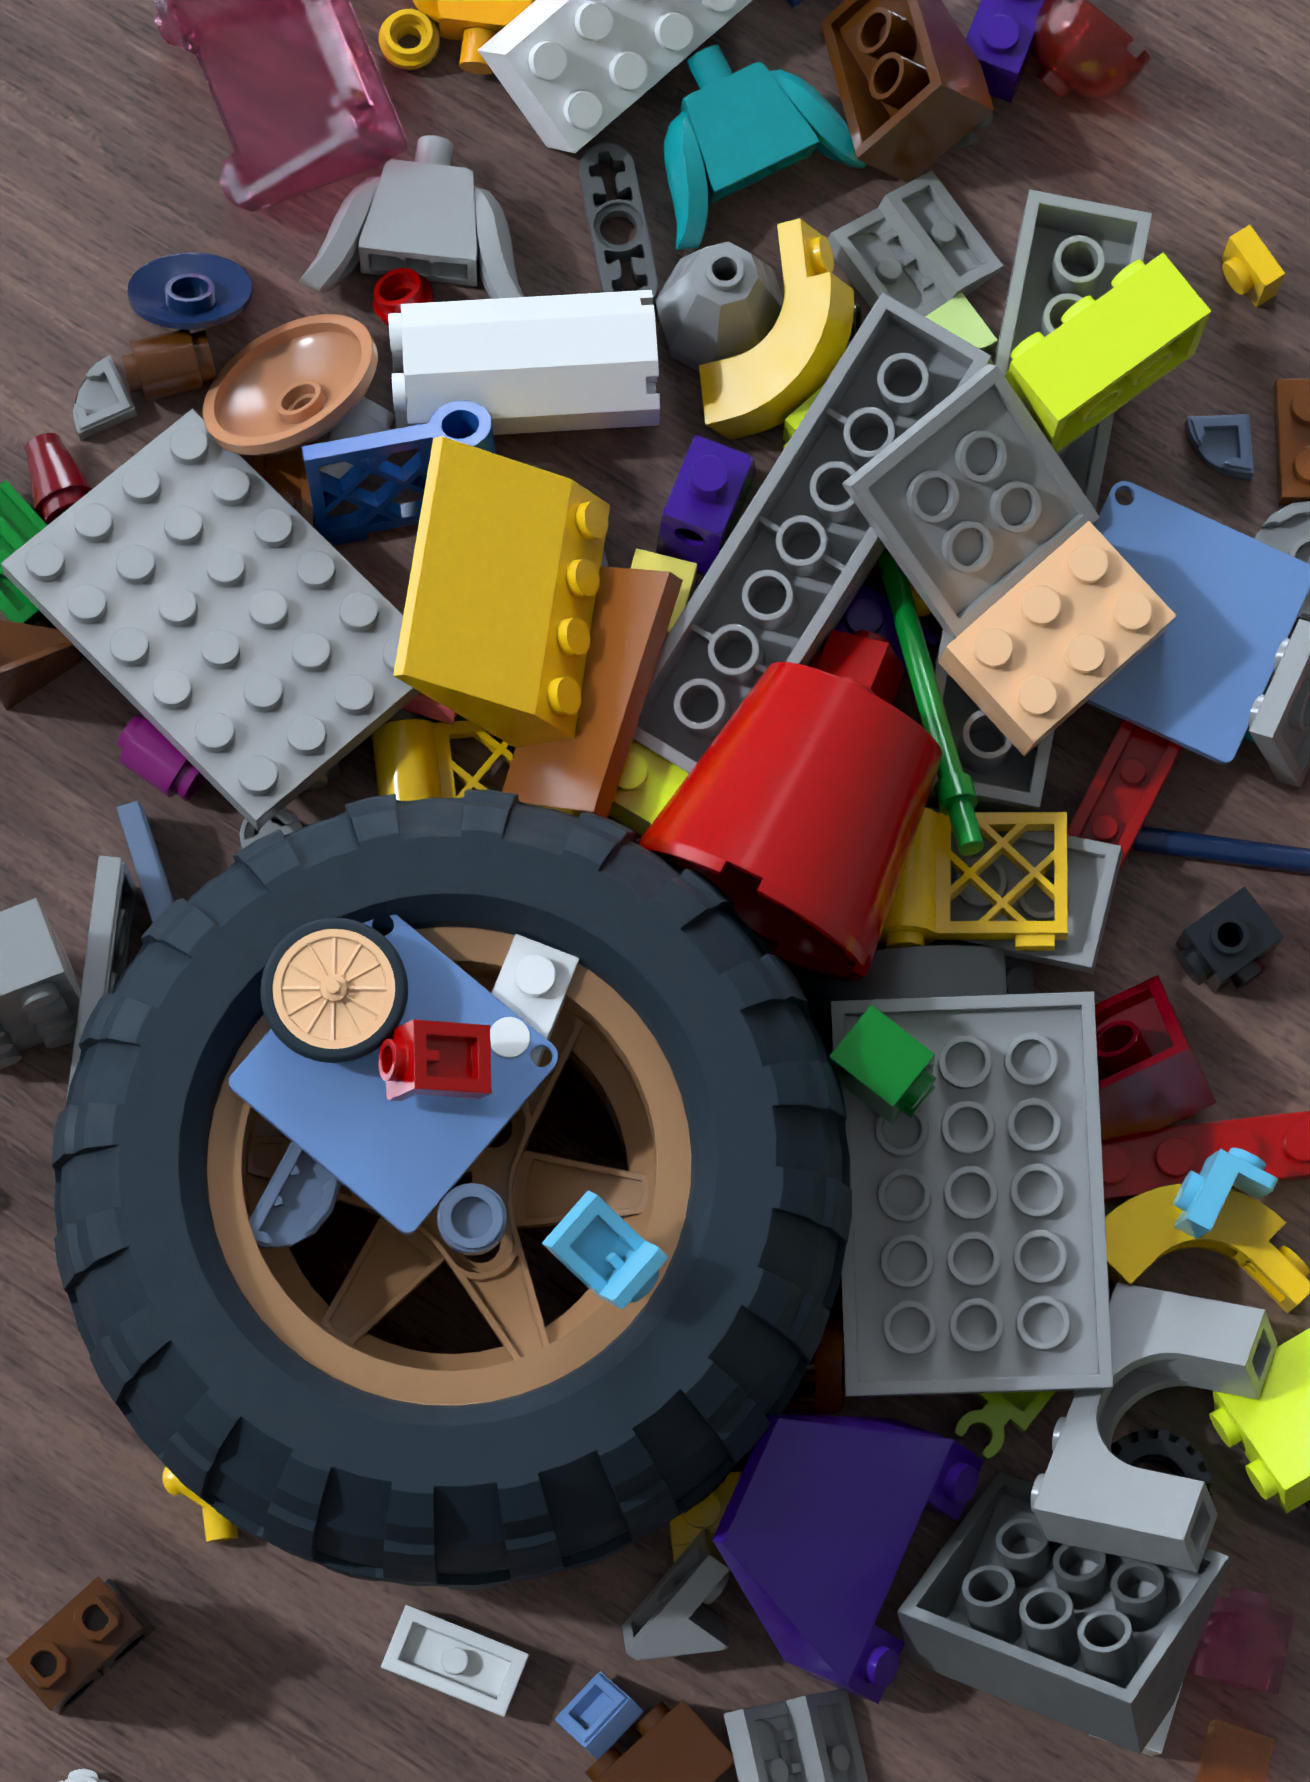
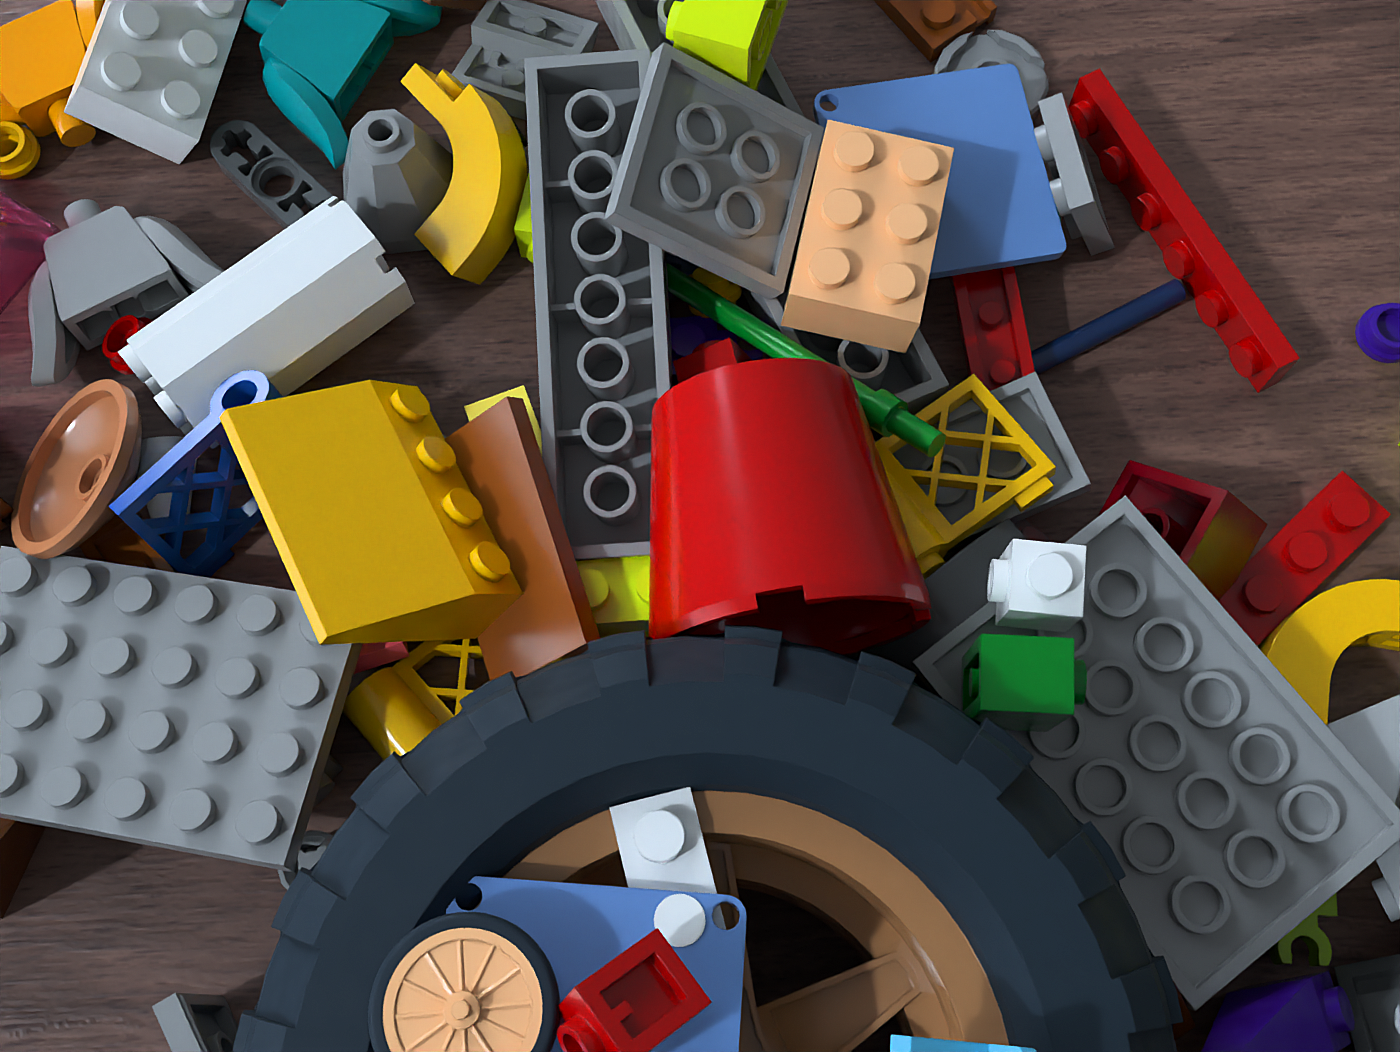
camera: 30 degrees left, 5 degrees down
(146, 858) = (209, 964): sand blue tile -> none
(157, 760) = (164, 871): magenta brick -> none
(705, 500) = (494, 329): dark purple torso -> none
(959, 1007) = (1038, 585): none -> white brick
(1205, 1193) = (1336, 593): medium azure bracket -> none
(1223, 443) = (858, 44): sand blue tile -> none
(1228, 943) = (1165, 395): black brick -> none

